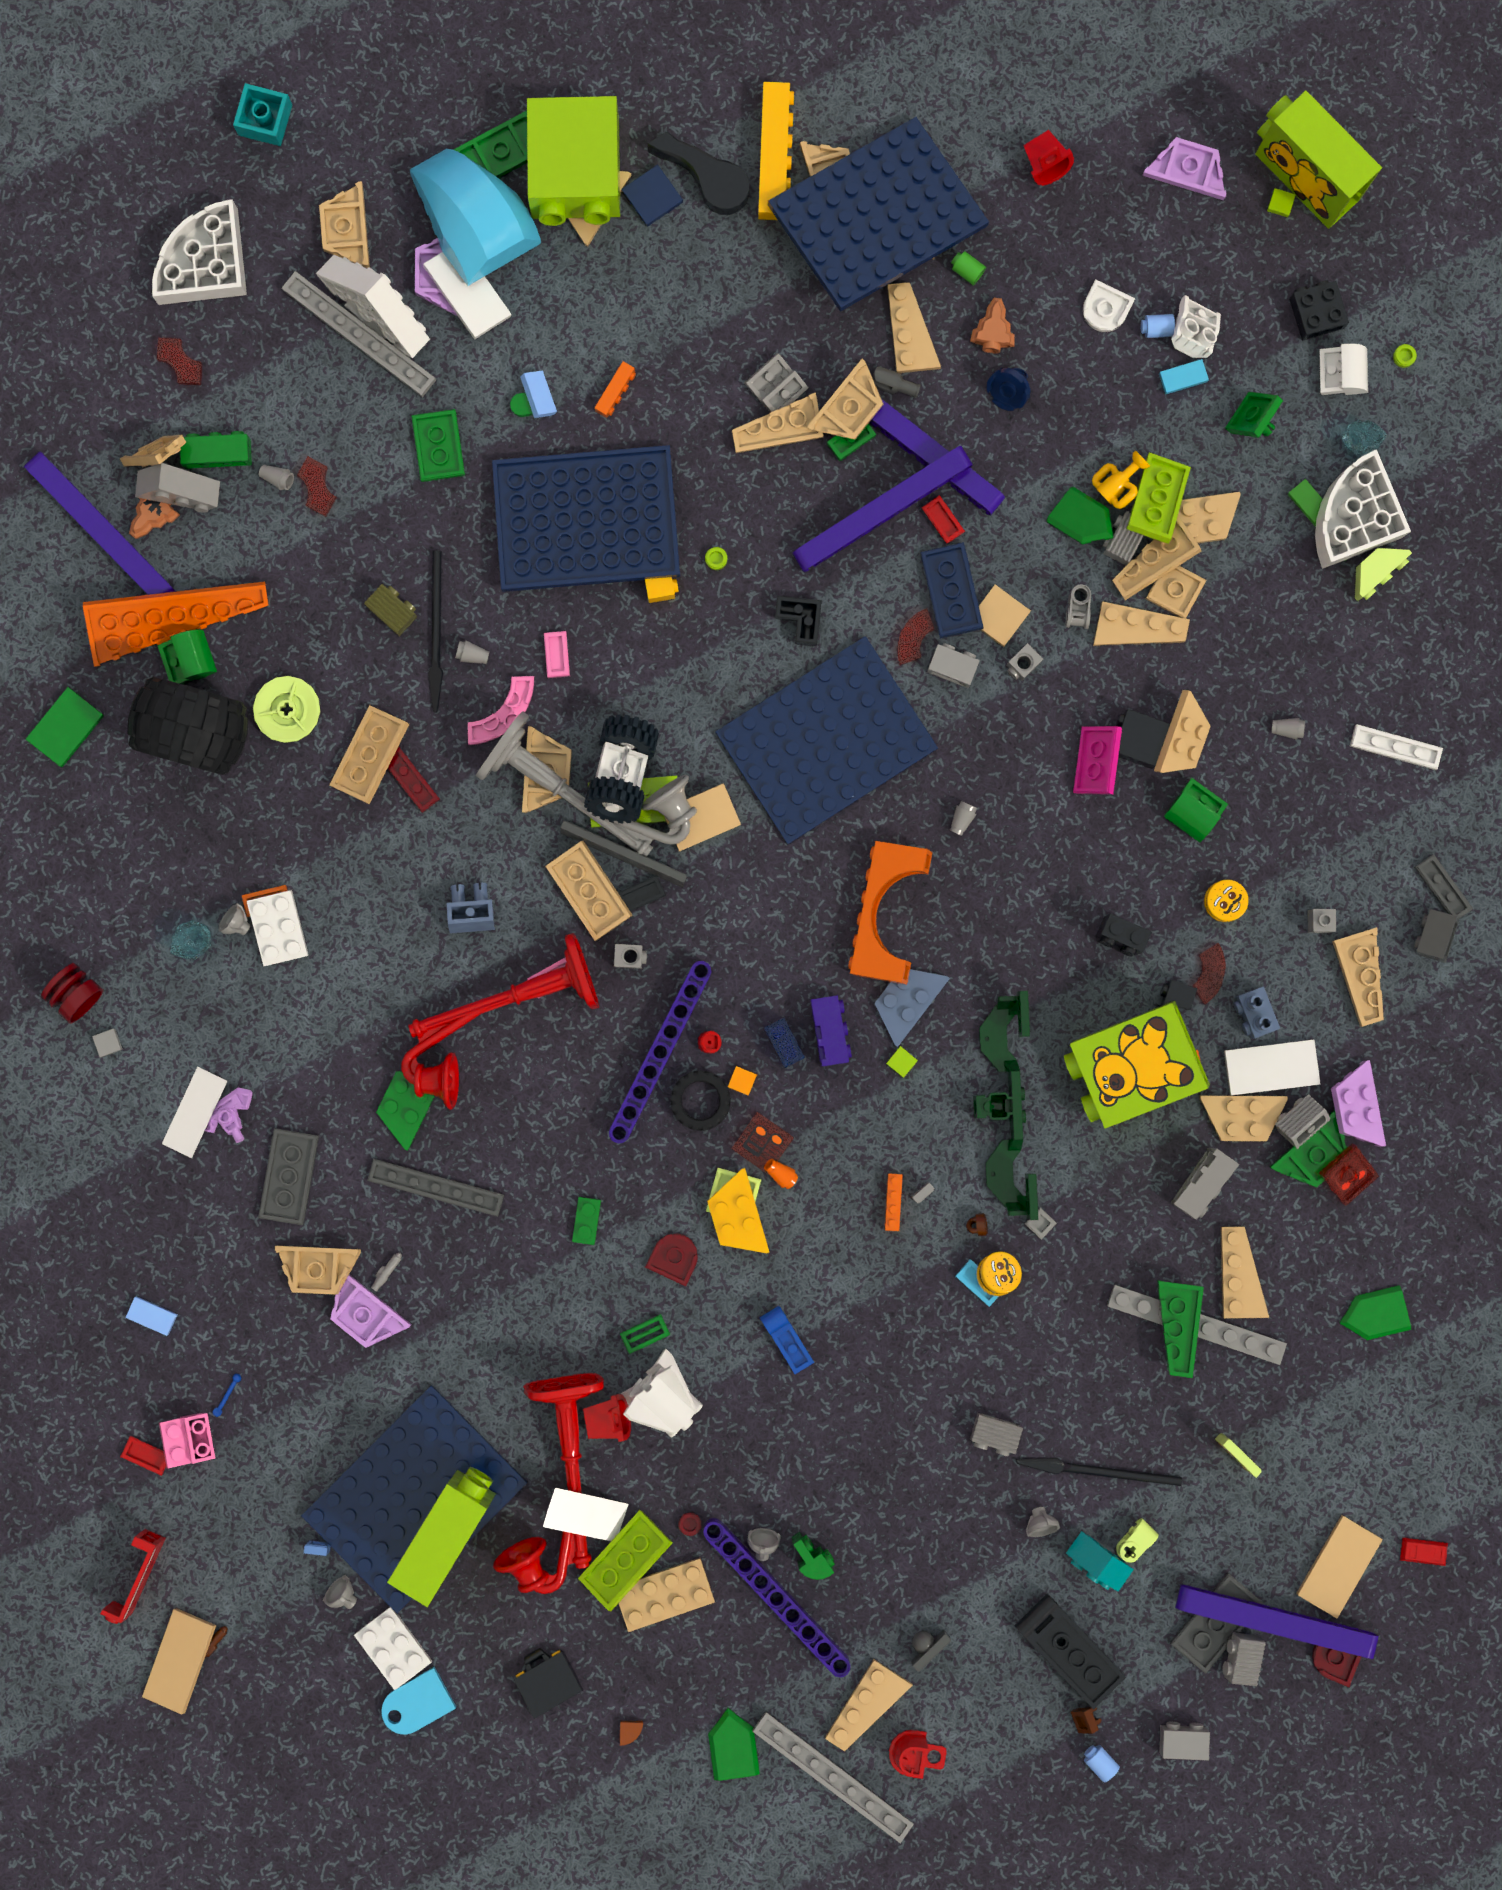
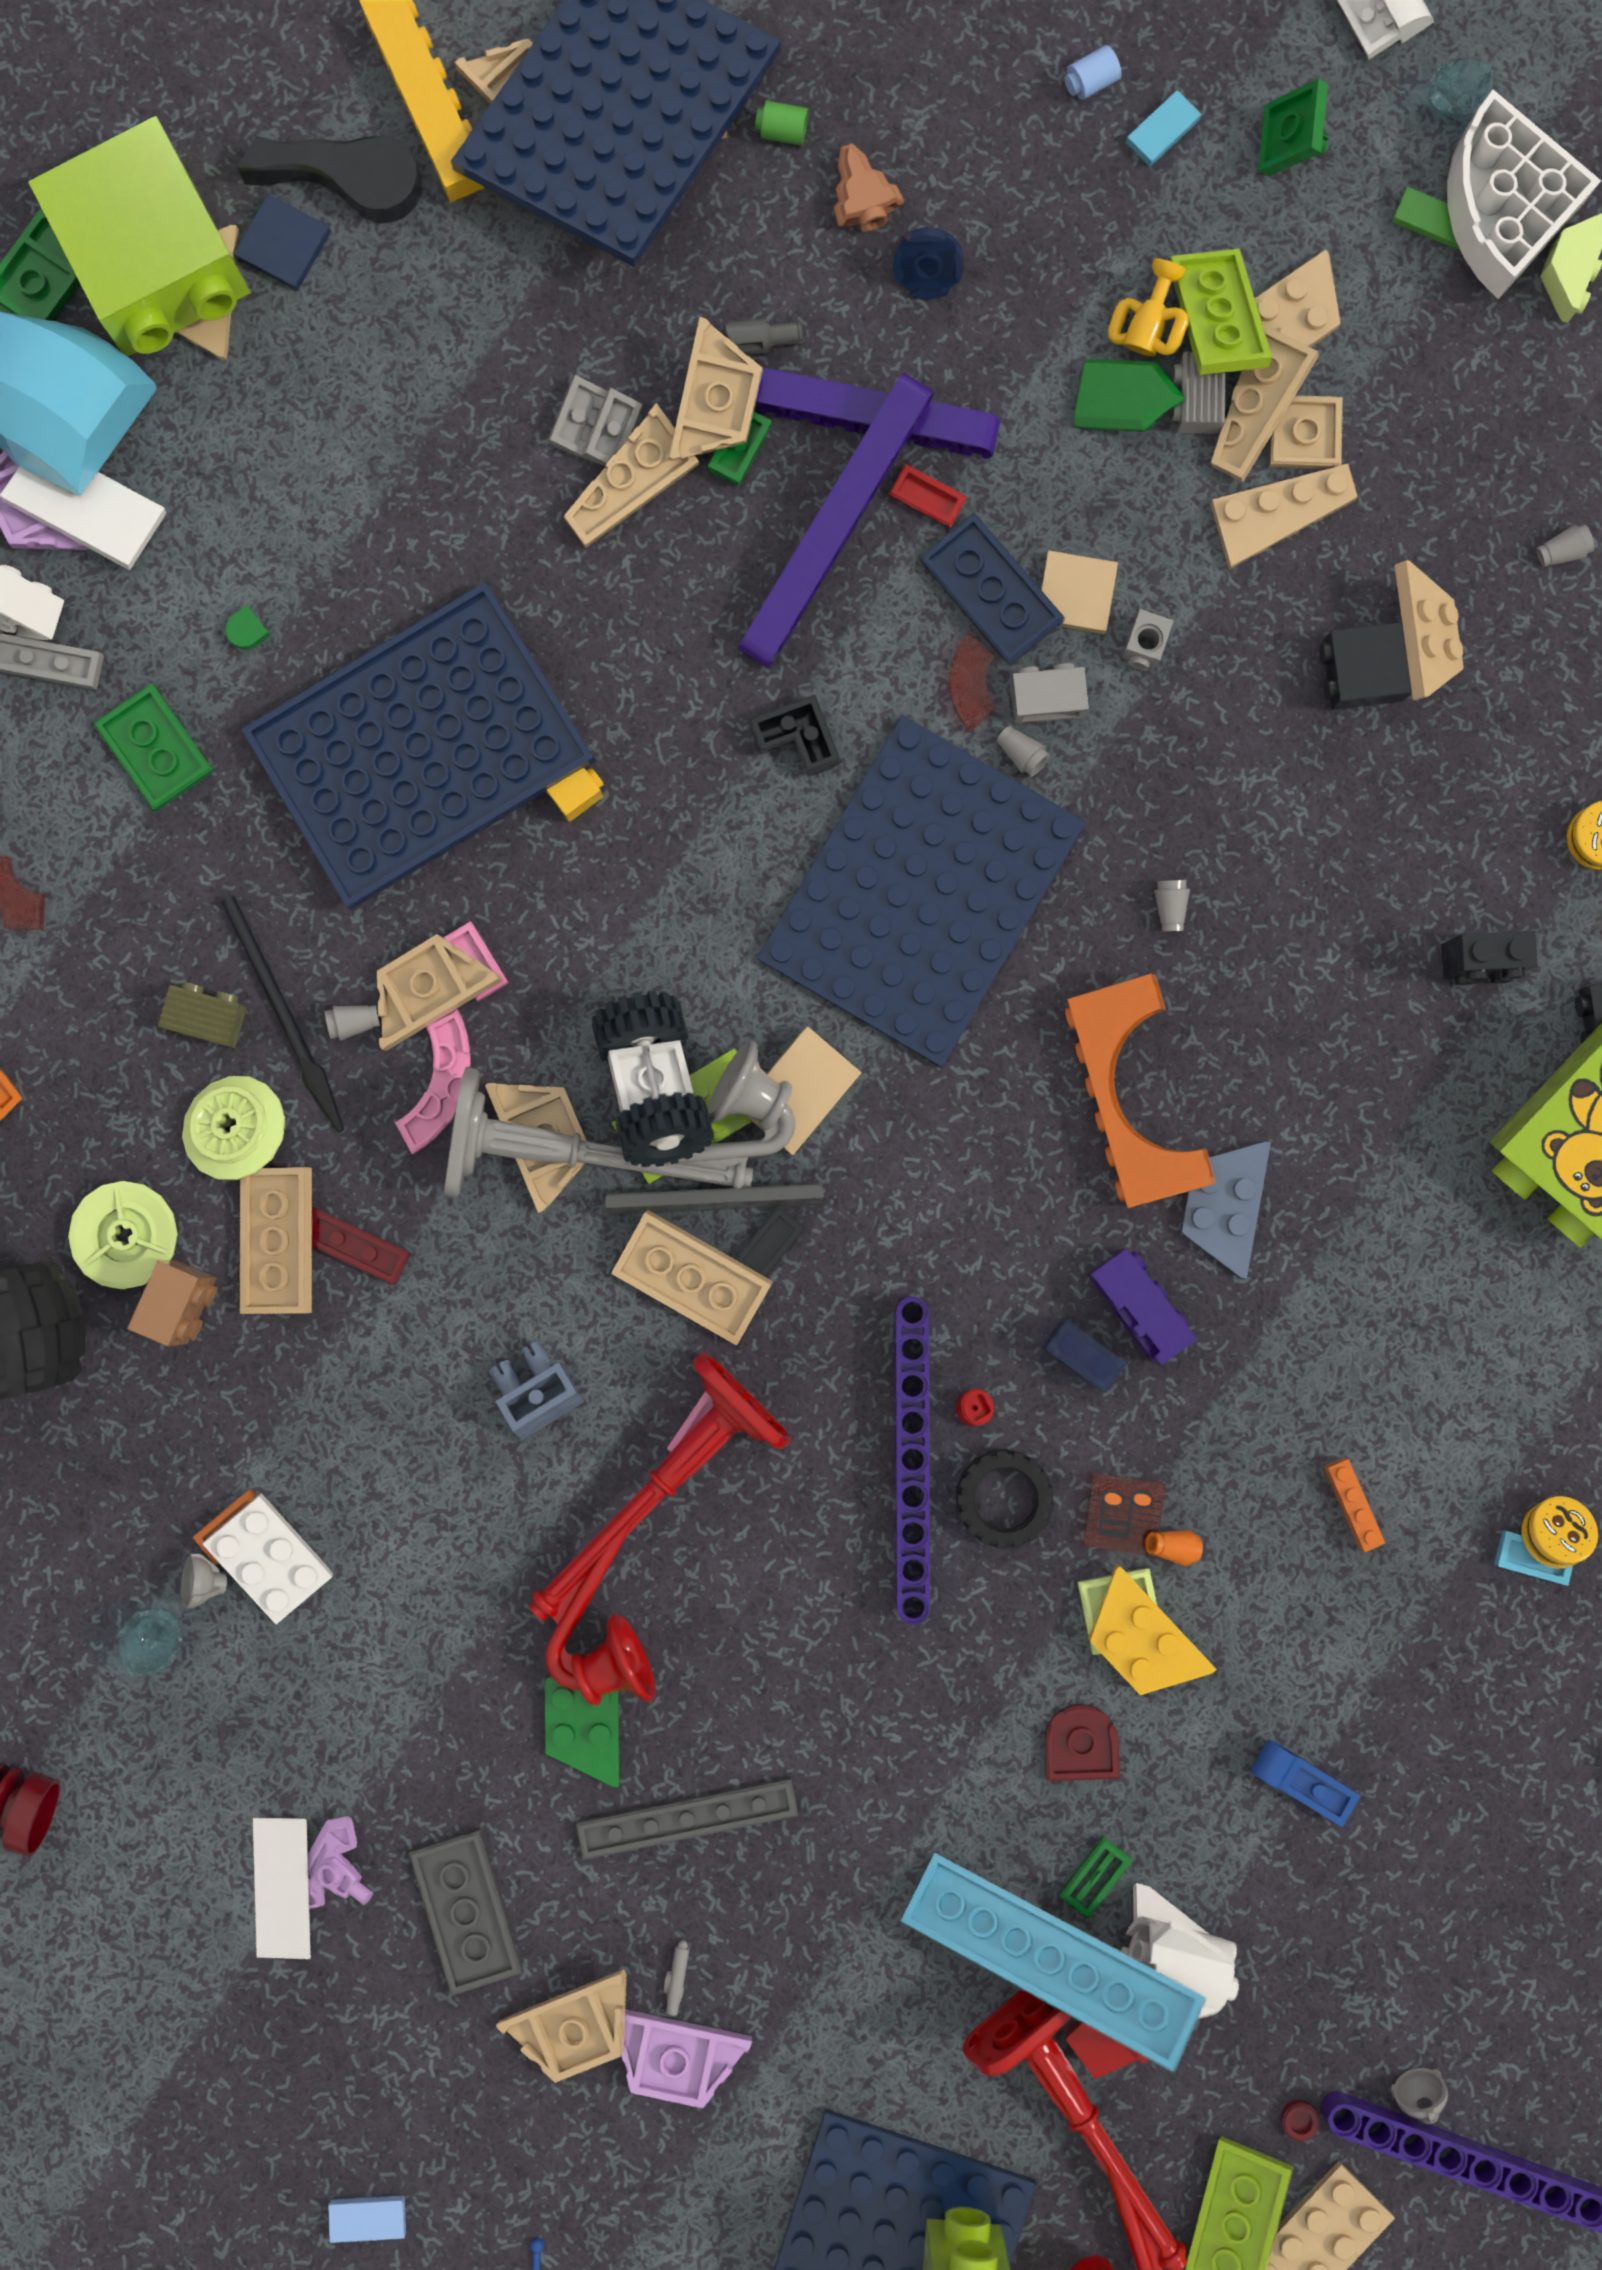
camera: 25 degrees left, 0 degrees up
(107, 1043) = (103, 1851): light grey tile -> none
(296, 761) = (173, 1303): none -> medium nougat brick
(383, 692) = (249, 1142): none -> yellowish green piece
(523, 656) = (427, 987): none -> tan wing
(538, 394) = (260, 602): light blue tile -> none
(585, 1514) = (1146, 2192): white sticker -> none
(586, 1220) = (928, 1755): green plate -> none
(597, 1358) = (1055, 1962): none -> medium azure plate
(616, 387) = (367, 542): orange piece -> none
(619, 958) = (786, 1354): light grey brick -> none
(716, 558) = (633, 711): lime tile -> none
(742, 1080) = (1049, 1439): light orange tile -> none
(814, 1562) = (1509, 2087): green brick -> none
(901, 1062) = (1262, 1296): lime tile -> none
(910, 335) = (748, 258): tan wing -> none
(923, 690) = (1023, 751): none -> light grey cone
(923, 1192) = (1390, 1470): light grey tile -> none
(981, 1224) = (1497, 1473): reddish brown tile -> none
(1001, 1106) = (1476, 1371): dark green piece -> none
(1042, 1225) = (1577, 1427): light grey tile -> none
(1078, 612) = (1186, 530): light grey piece -> none
(1097, 760) = (1323, 726): dark pink tile -> none
(1106, 307) = (1004, 84): white tile -> none
(1195, 329) = (1148, 51): white slope -> none
(1196, 810) = (1497, 728): green brick -> none

